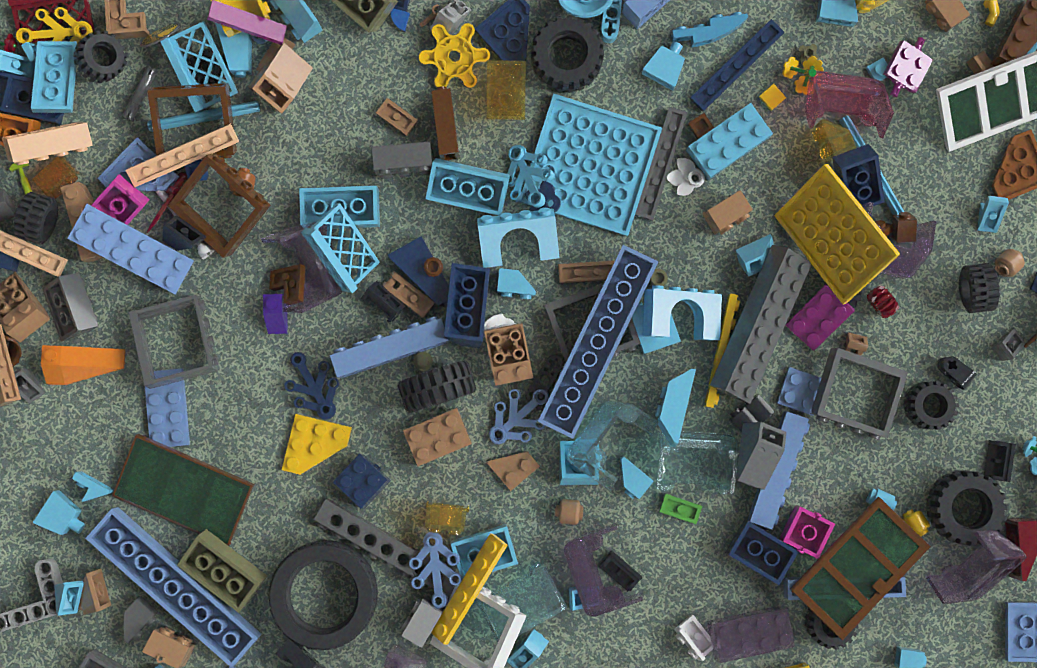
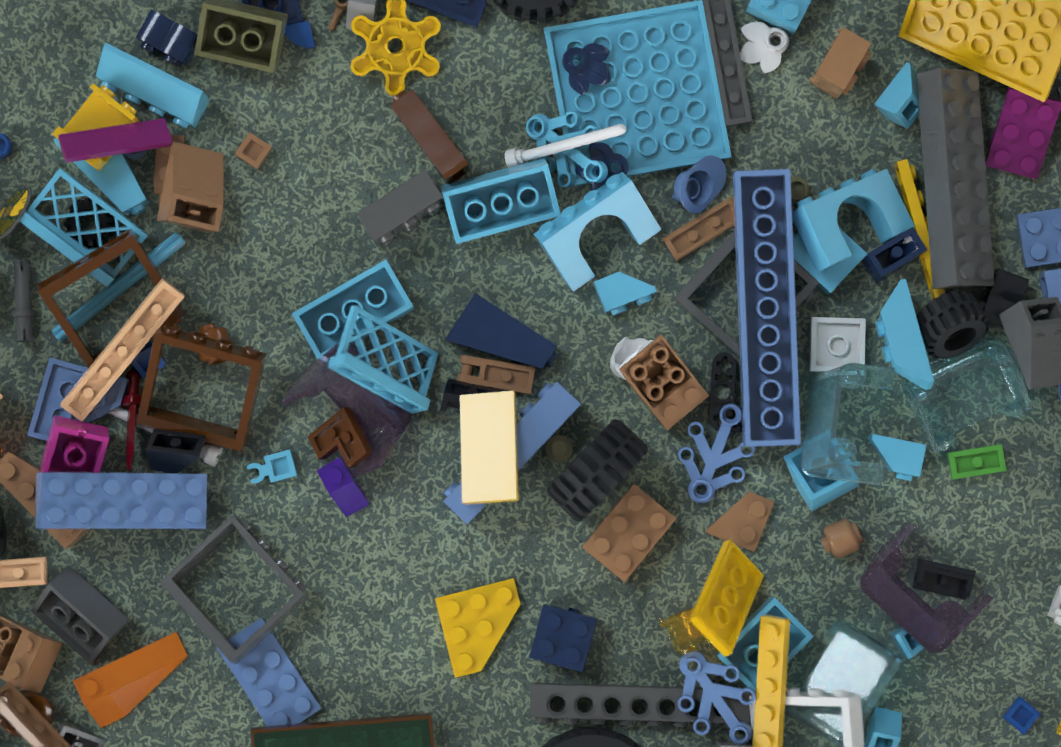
camera: 30 degrees left, 0 degrees up
(241, 279) = (277, 467): none -> medium azure plate
(314, 388) = (441, 554): dark blue plant -> none
(332, 75) = (253, 151): none -> medium nougat plate
(375, 337) = (489, 447): none -> tile
(396, 117) = (363, 160): medium nougat plate -> none
(433, 267) = (511, 323): reddish brown plate -> none
(466, 305) = (579, 348): dark blue slope -> none
(475, 510) = (727, 597): none -> yellow tile
(495, 165) = (520, 156): none -> white piece
(506, 89) = (484, 54): clear yellow brick -> none
(569, 133) = (591, 67): none -> dark blue plate
(599, 242) = (700, 184): none -> medium blue piece
(632, 387) = (836, 342): none -> white plate
(697, 351) = (893, 255): none -> dark blue slope
(710, 414) = (952, 324): none -> black tyre

